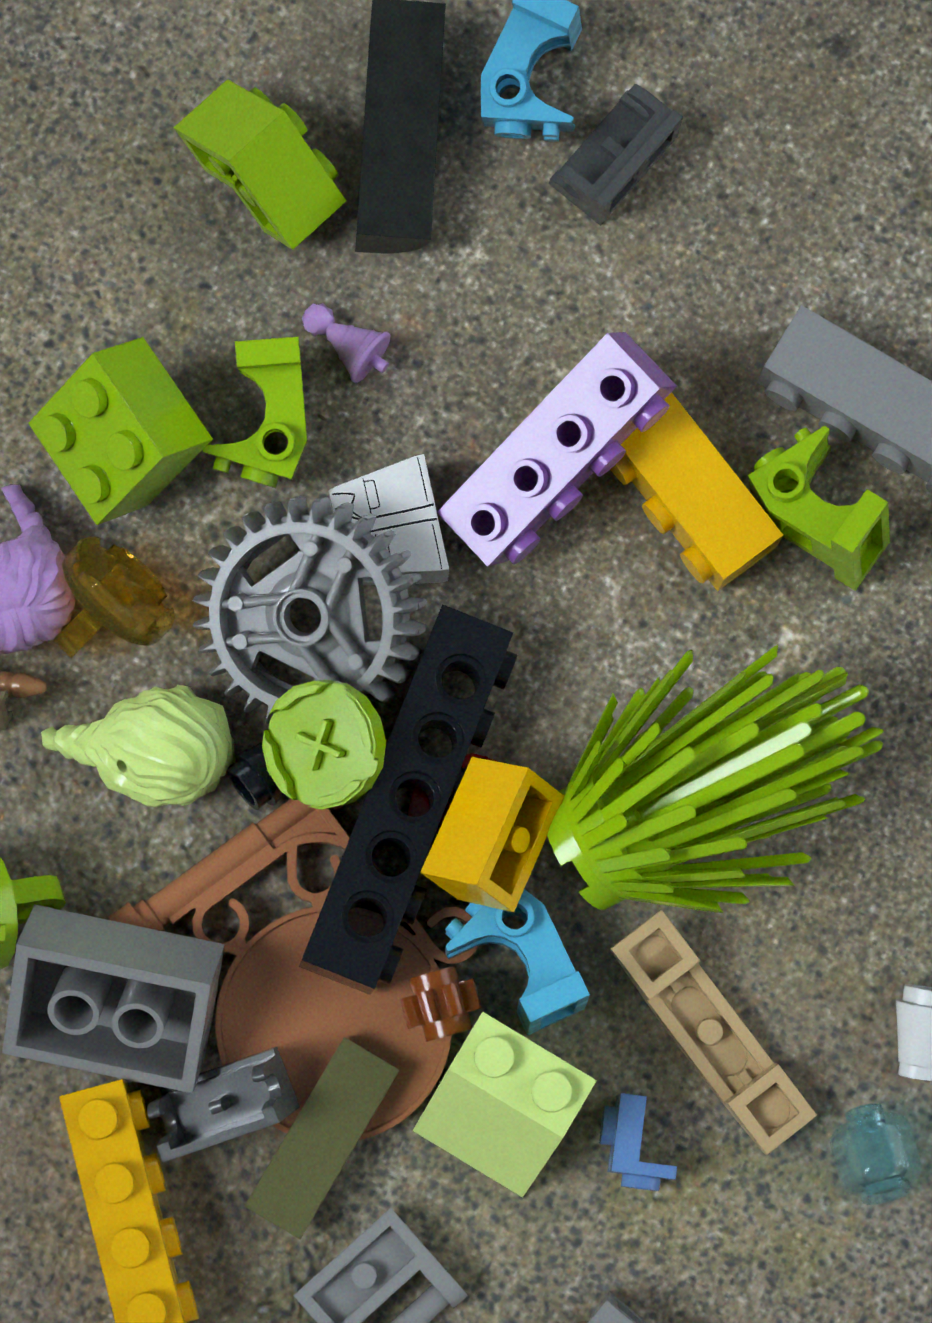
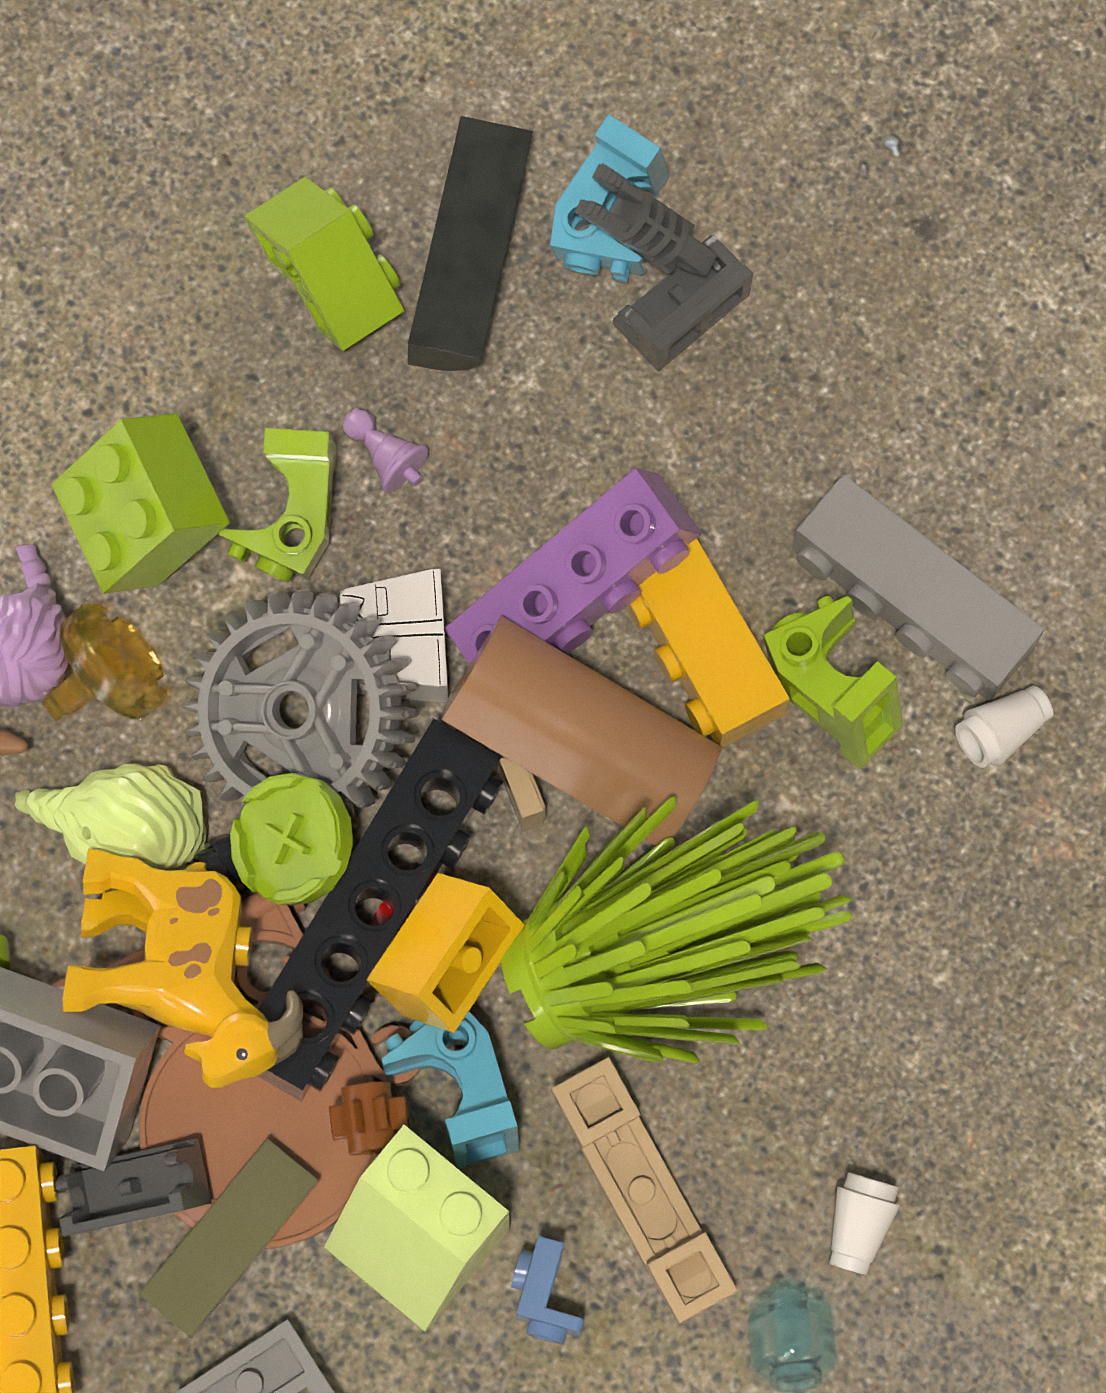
camera: 15 degrees right, 5 degrees down
(243, 884) = (187, 965): none -> yellow animal
(535, 660) = (522, 794): none -> tan tile
(574, 85) = (646, 225): none -> dark grey hinge
(585, 596) = (580, 730): none -> medium nougat brick

